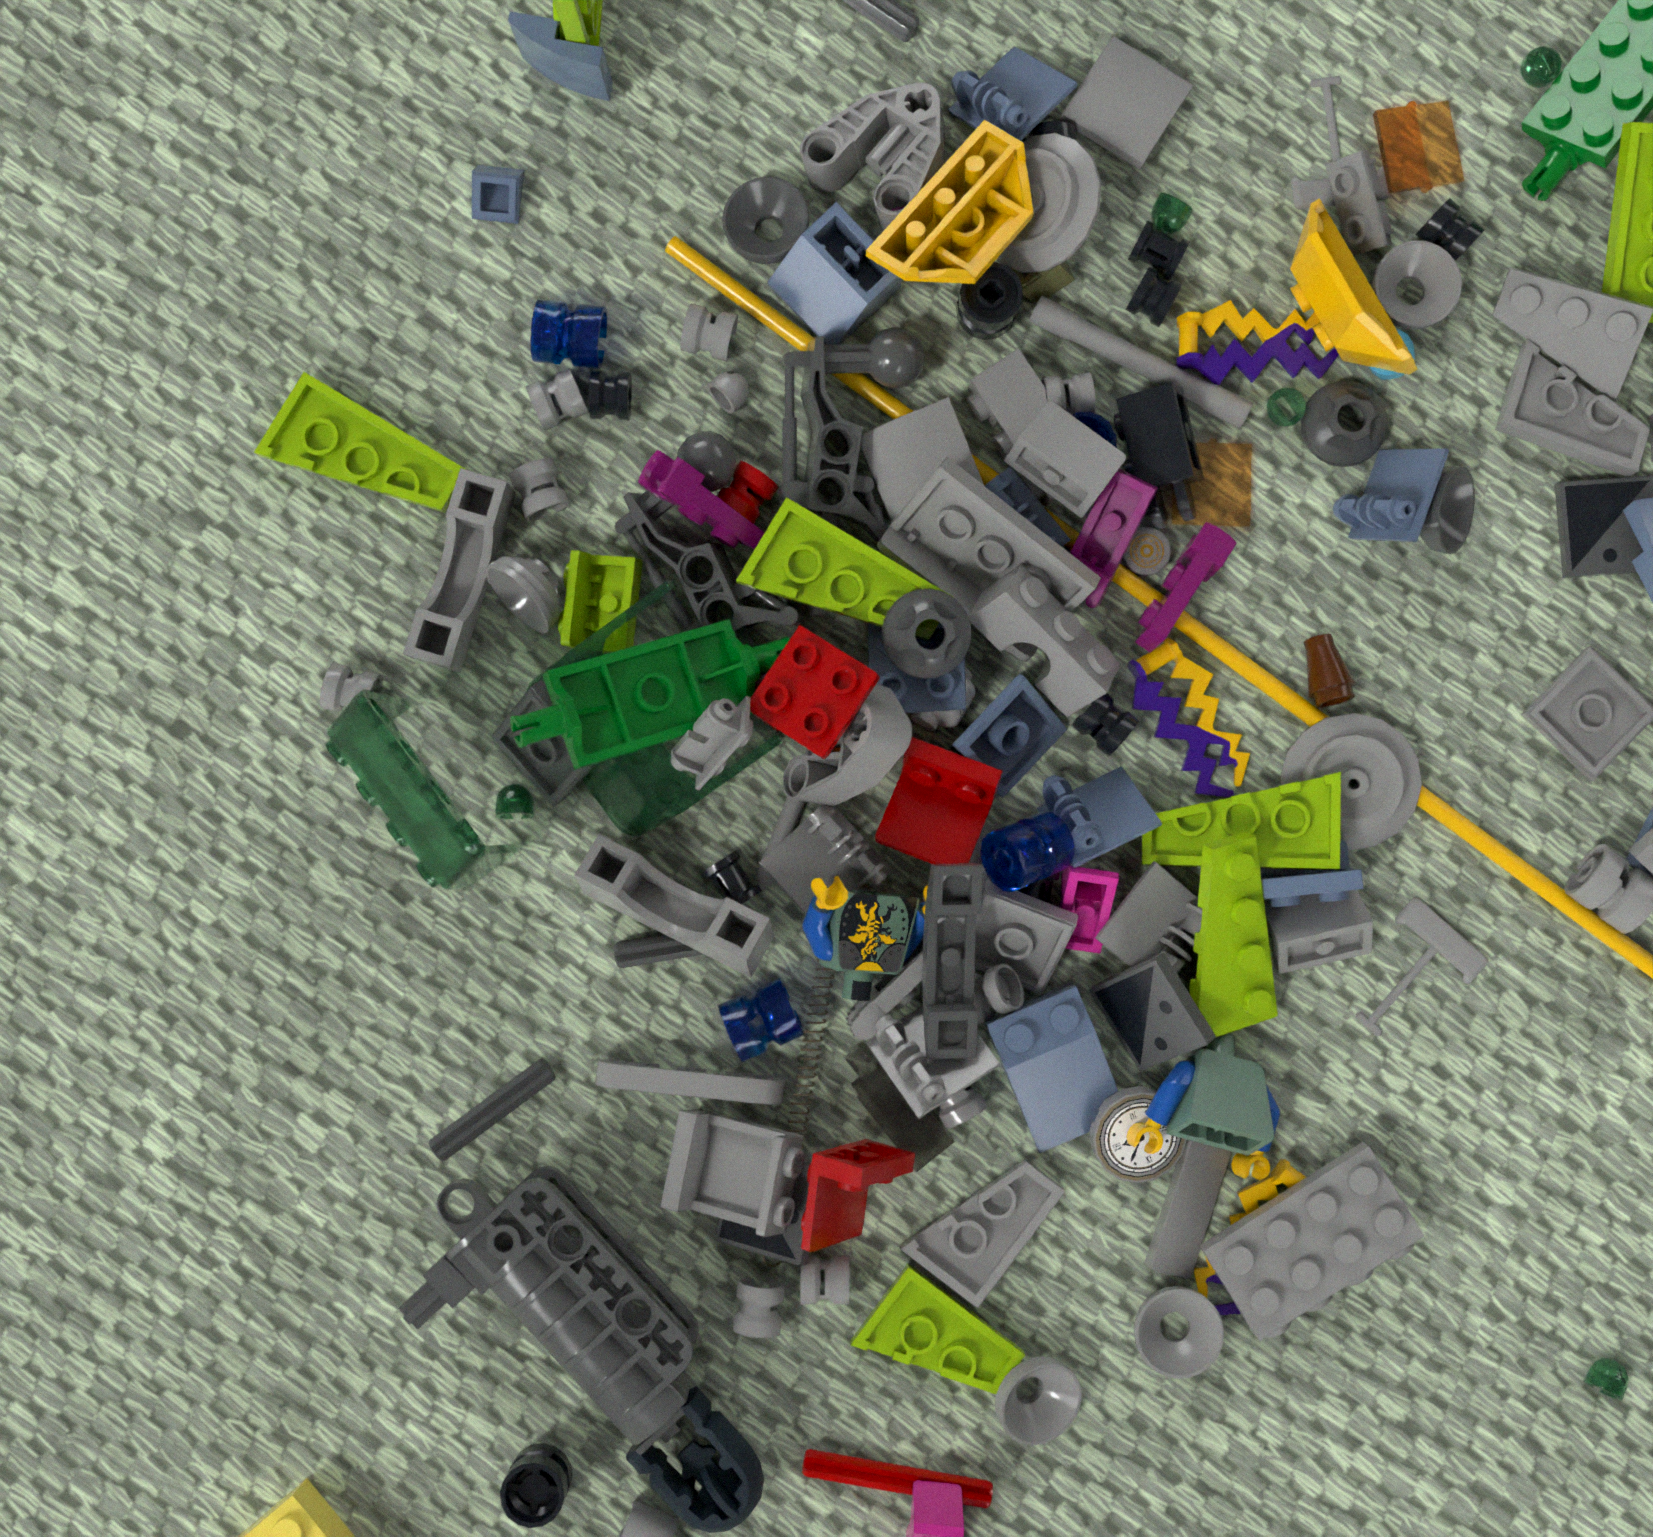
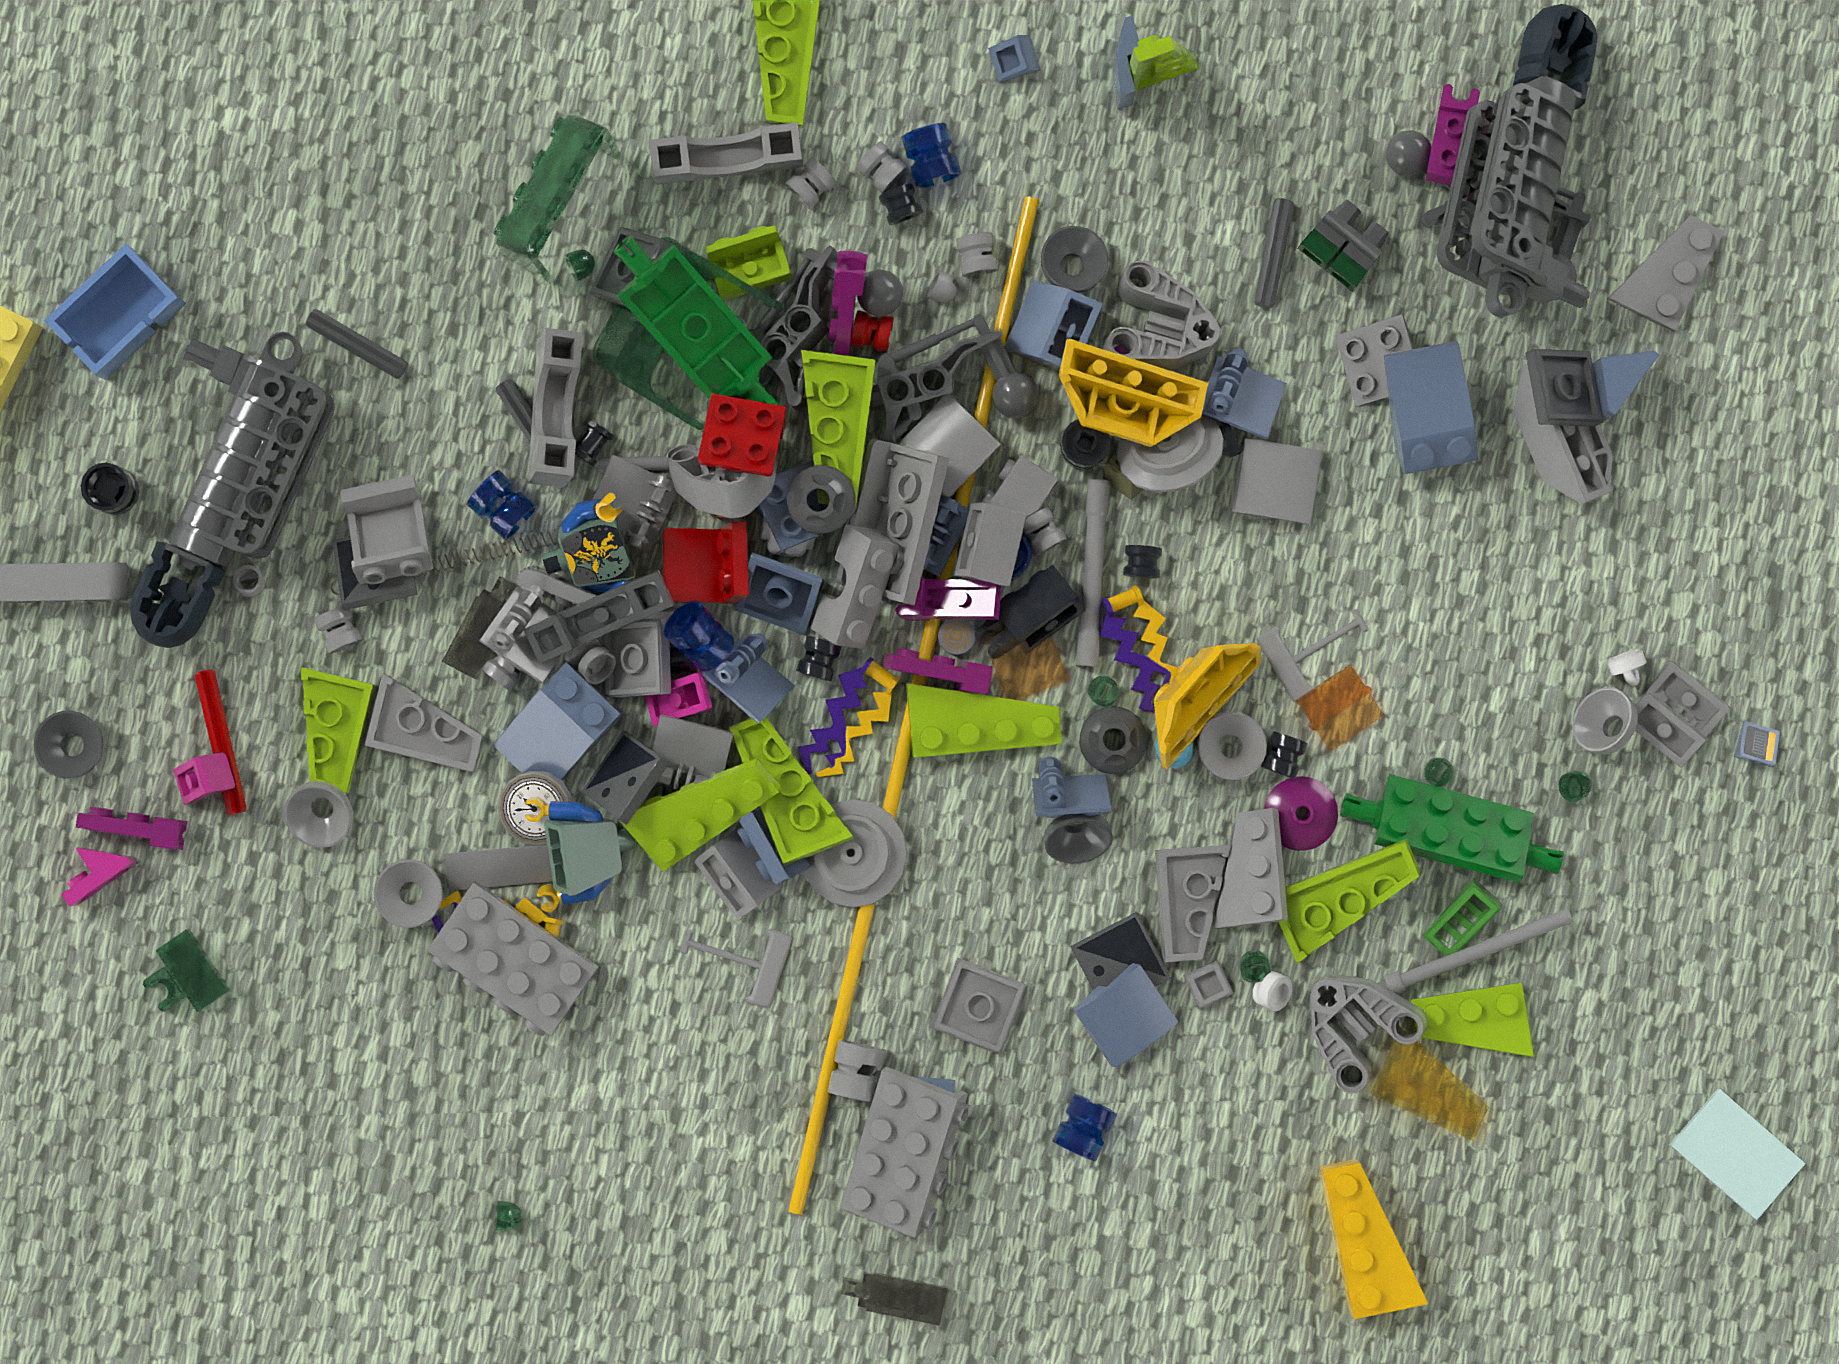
camera: 70 degrees right, 0 degrees up
(324, 1388) = (114, 311): none -> medium blue piece
(341, 686) = (609, 111): light grey wheel -> none
(526, 590) = (734, 206): light grey piece -> none
(690, 1082) = (436, 474): light grey beam -> none
(711, 1359) = (248, 574): none -> light grey hinge
(713, 739) = (680, 381): light grey hinge -> none
(758, 1309) = (298, 591): light grey wheel -> none
(840, 1189) = (405, 612): red bracket -> none
(1158, 250) = (1178, 550): black bush -> none
(1170, 213) = (1208, 548): clear green hinge -> none
(1253, 589) = (970, 722): none -> lime wing
(1327, 673) = (924, 802): reddish brown cone -> none
(1354, 190) = (1263, 692): light grey hinge -> none
(1500, 245) = (1322, 812): none -> magenta dish

